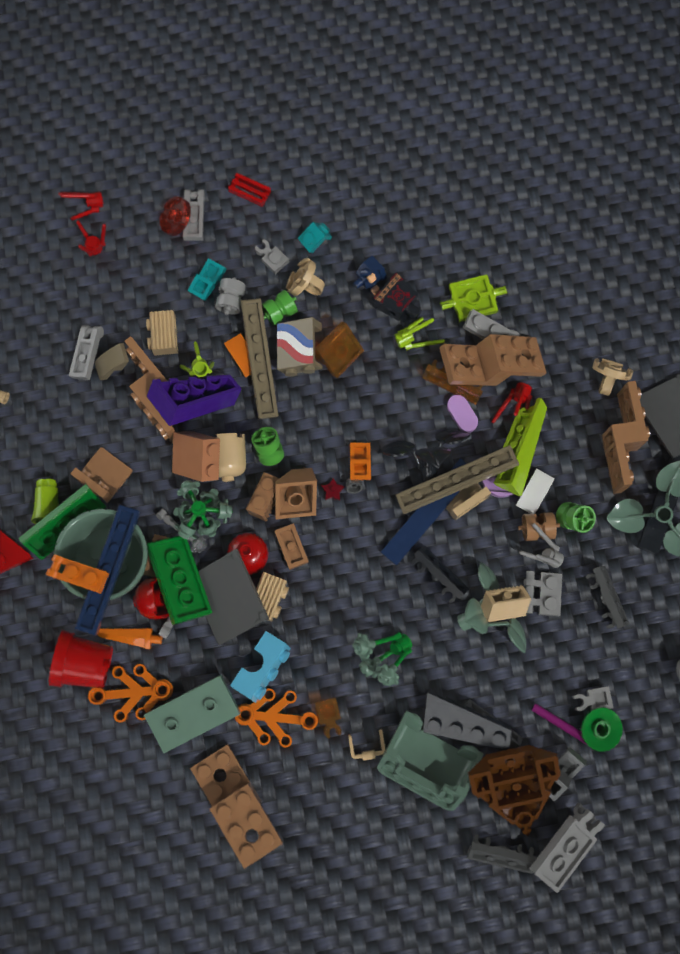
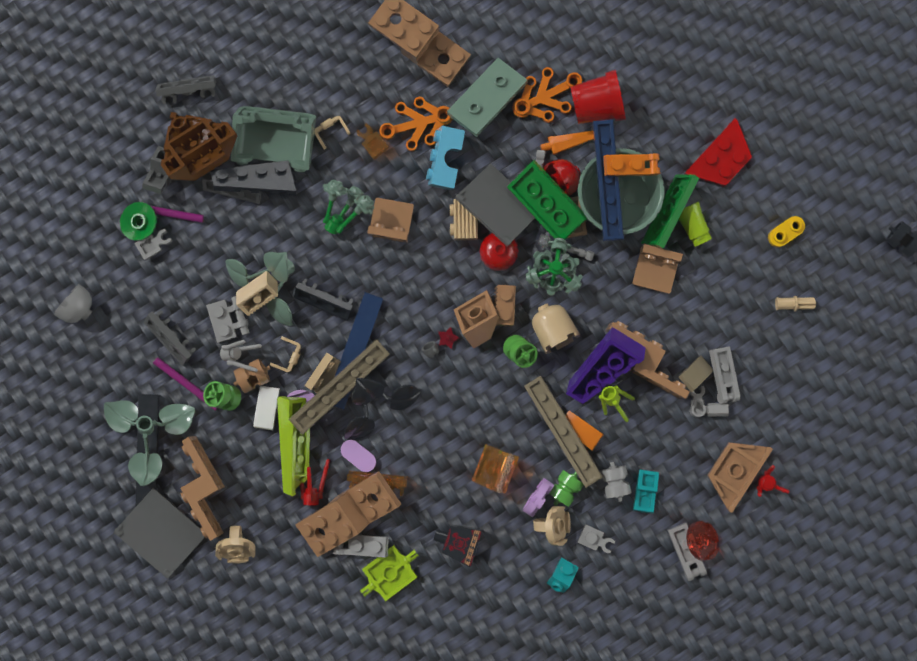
camera: 160 degrees right, 10 degrees up
(93, 200) = (789, 528): red plant -> none
(114, 327) = (712, 409): none -> light grey bar
(115, 265) = (736, 470): none -> medium nougat wing
(163, 332) = (662, 421): tan brick -> none
(196, 456) = (579, 313): nougat brick -> none
(243, 179) = (662, 601): red tile -> none
(291, 546) = (463, 272): medium nougat plate -> none
(297, 346) = (533, 455): panel -> none
(310, 307) = (537, 498): none -> lavender plate
(341, 626) = (391, 220): none -> medium nougat bracket
(360, 461) = (432, 372): orange slope -> none
(369, 274) = (495, 555): dark blue piece -> none
(405, 337) = (438, 507): lime plant -> none
(490, 529) = (294, 358): none -> tan piece
(567, 848) = (135, 113): light grey tile -> none
(611, 554) = (180, 379): none -> magenta bar

